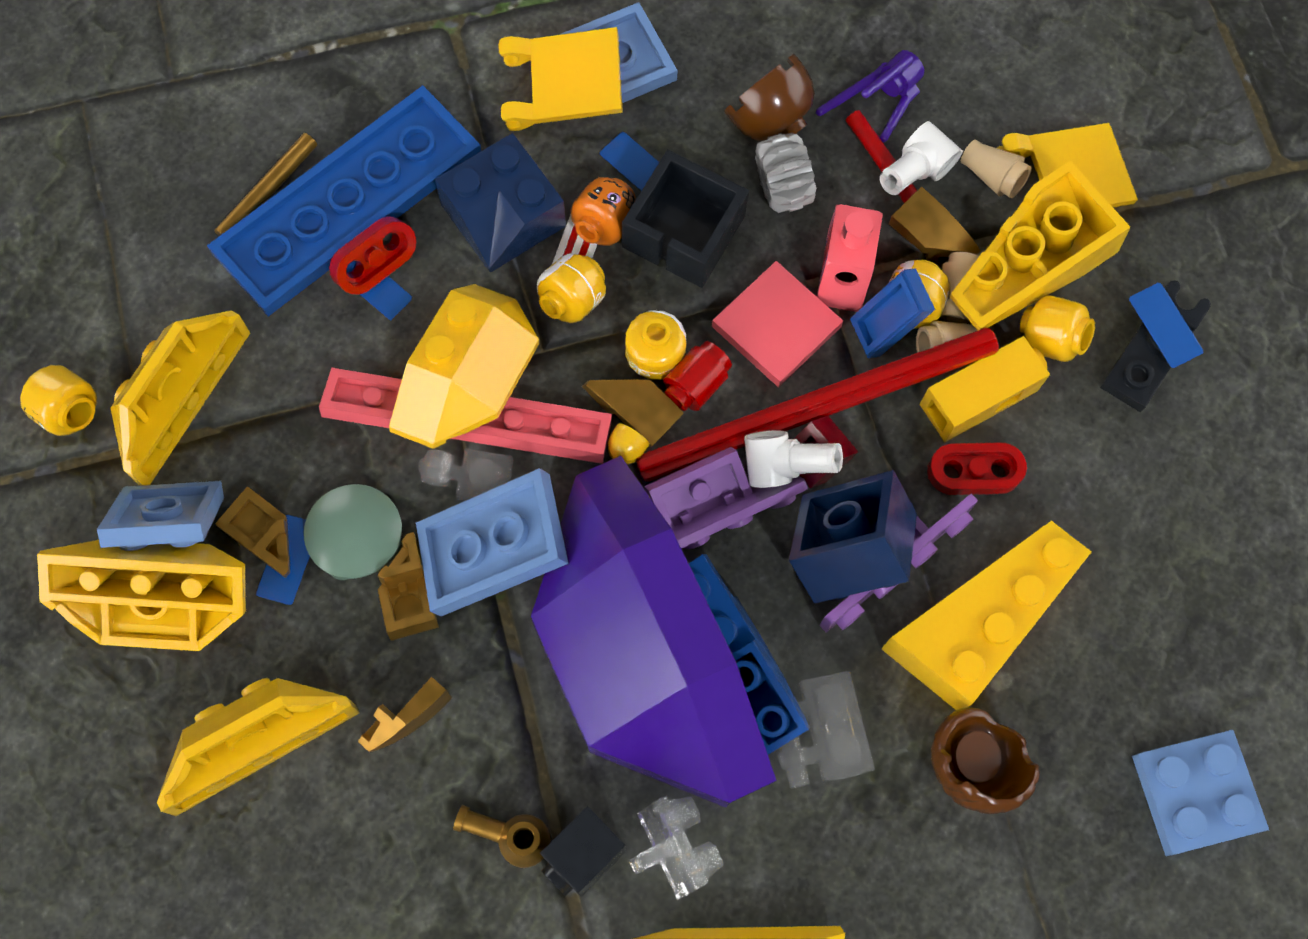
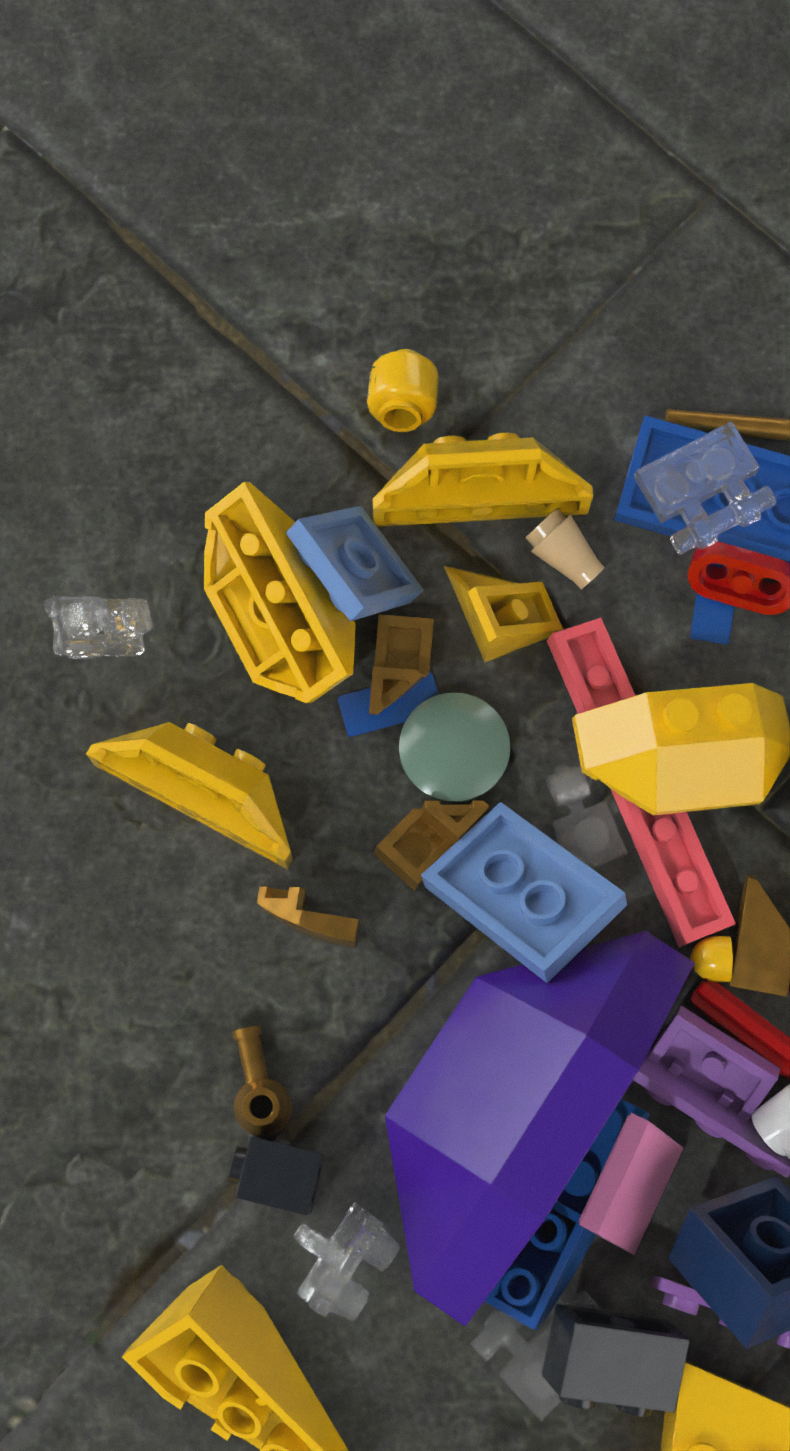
camera: 60 degrees right, 5 degrees up
(52, 748) = (82, 618): none -> clear hips
(263, 361) = (564, 547): none -> tan cone
(275, 235) = (698, 472): none -> clear plate
(279, 435) = (503, 612): none -> yellow slope
(747, 597) = (631, 1184): none -> bright pink tile
(862, 686) = (614, 1360): none -> black brick

